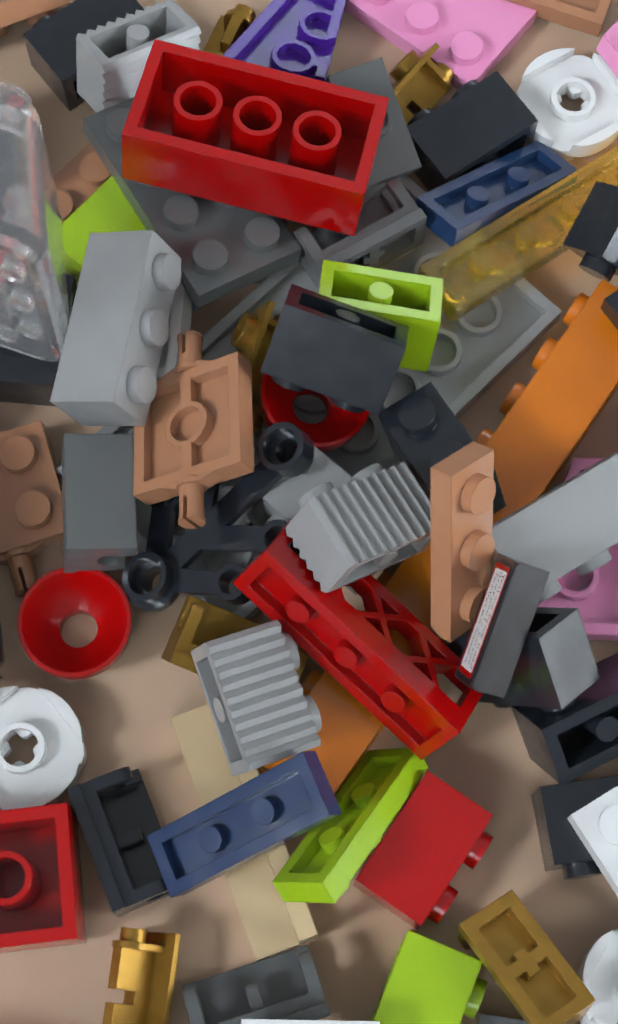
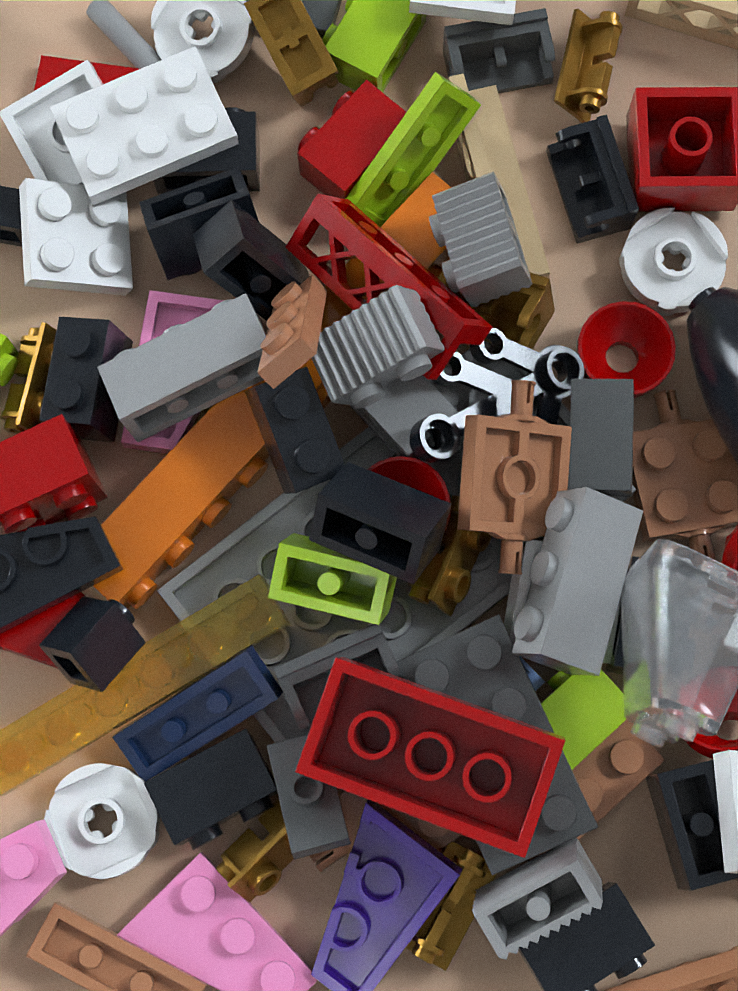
camera: 170 degrees left, 5 degrees up
(244, 823) = (507, 147): dark blue plate -> none
(501, 626) = (272, 260): black slope -> none

